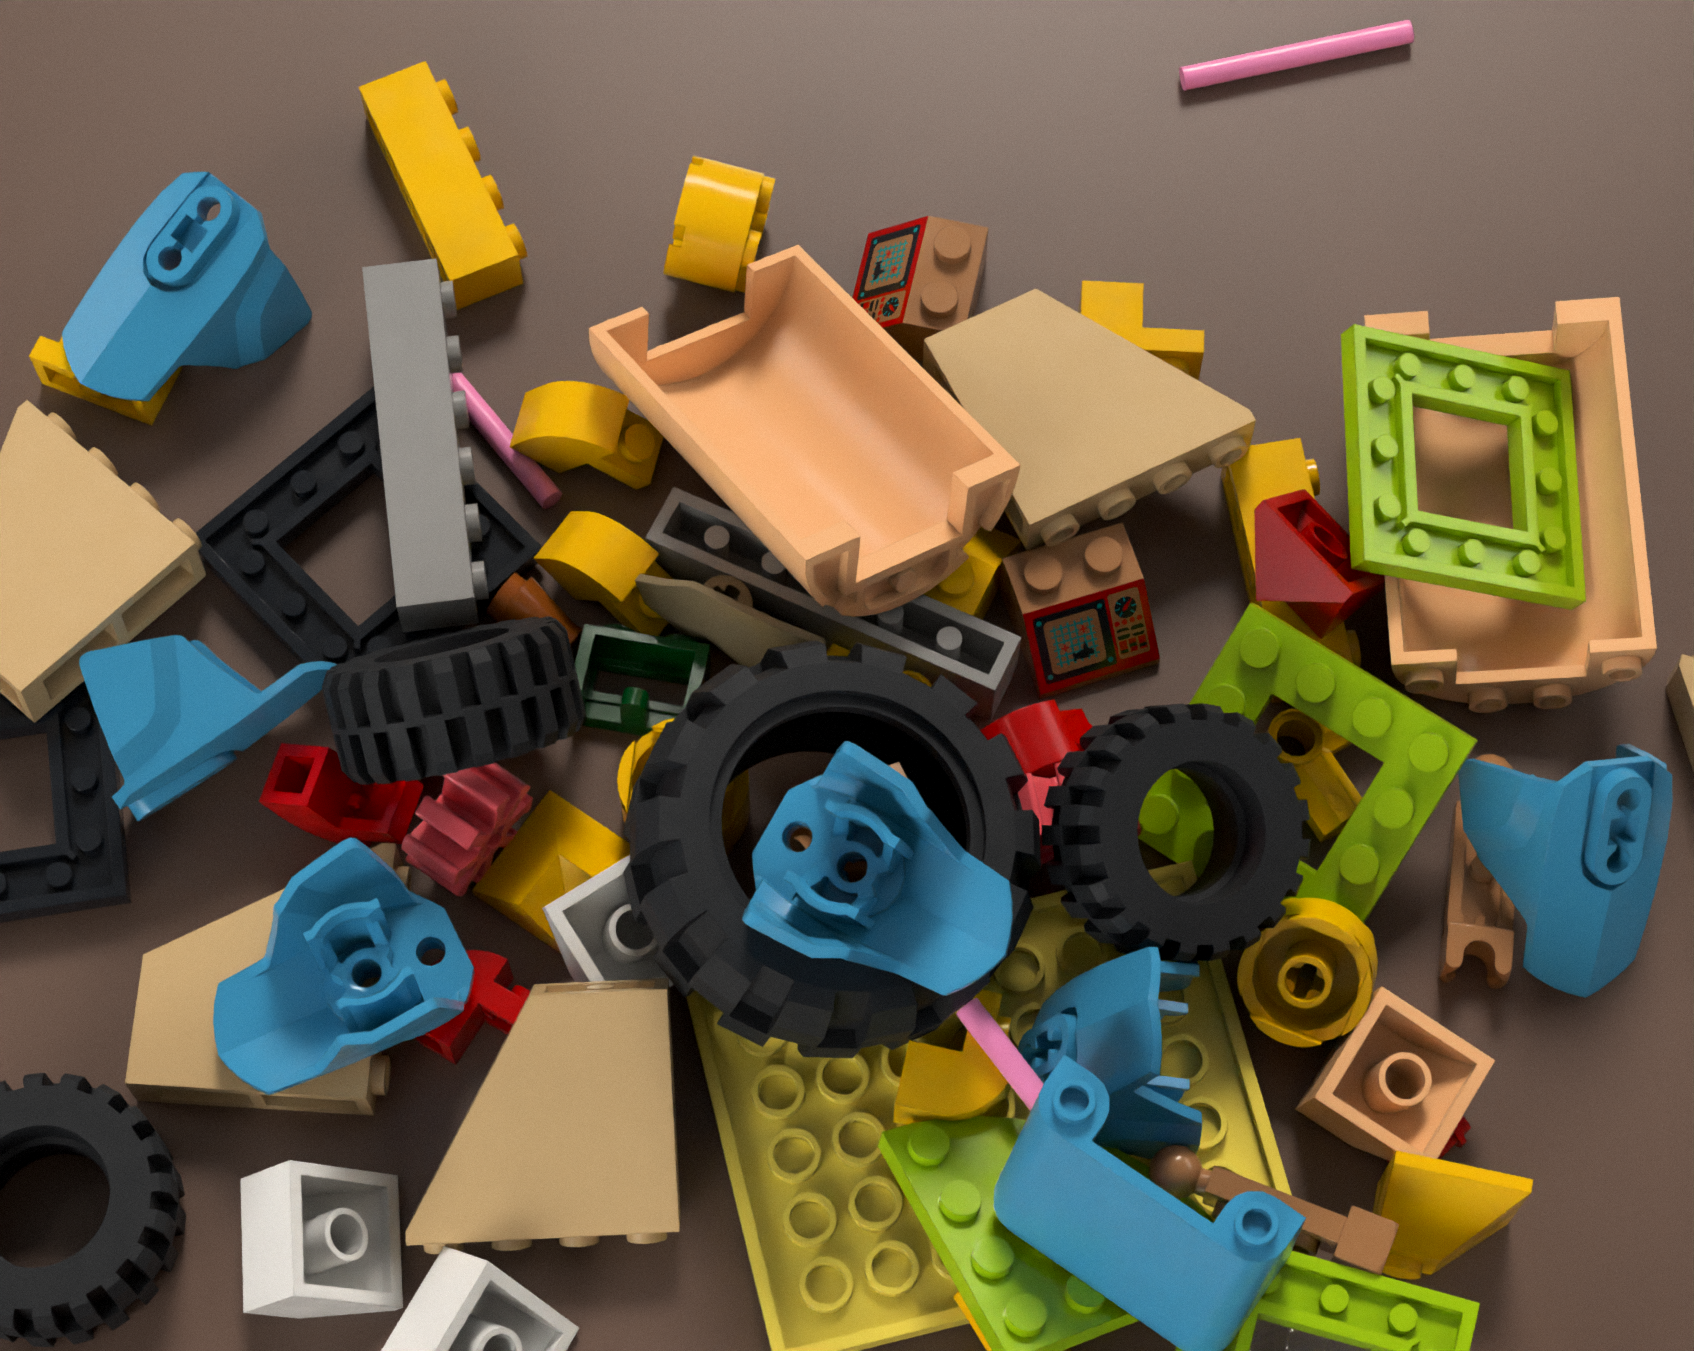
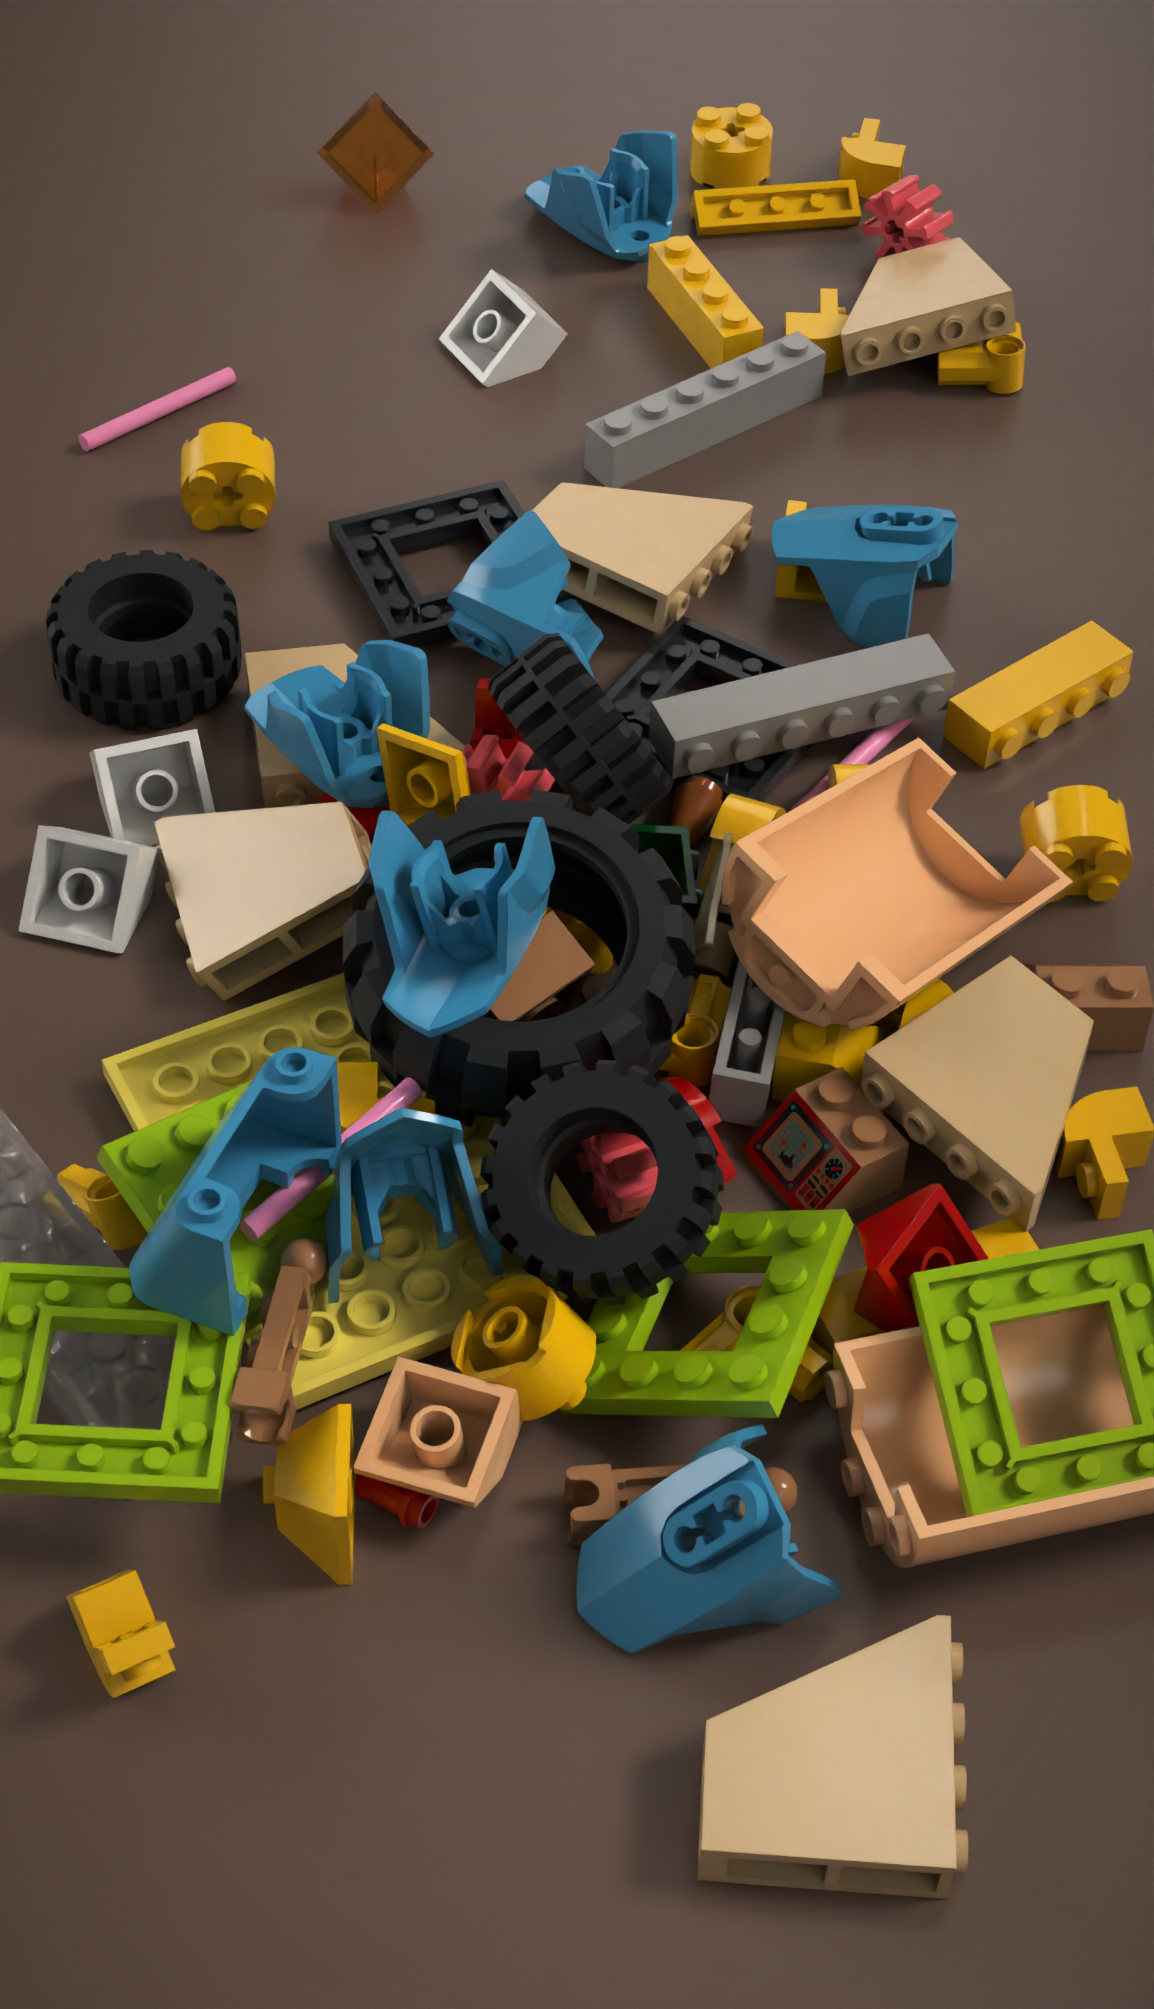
camera: 75 degrees right, 20 degrees down
(497, 886) = (421, 774): none -> yellow slope

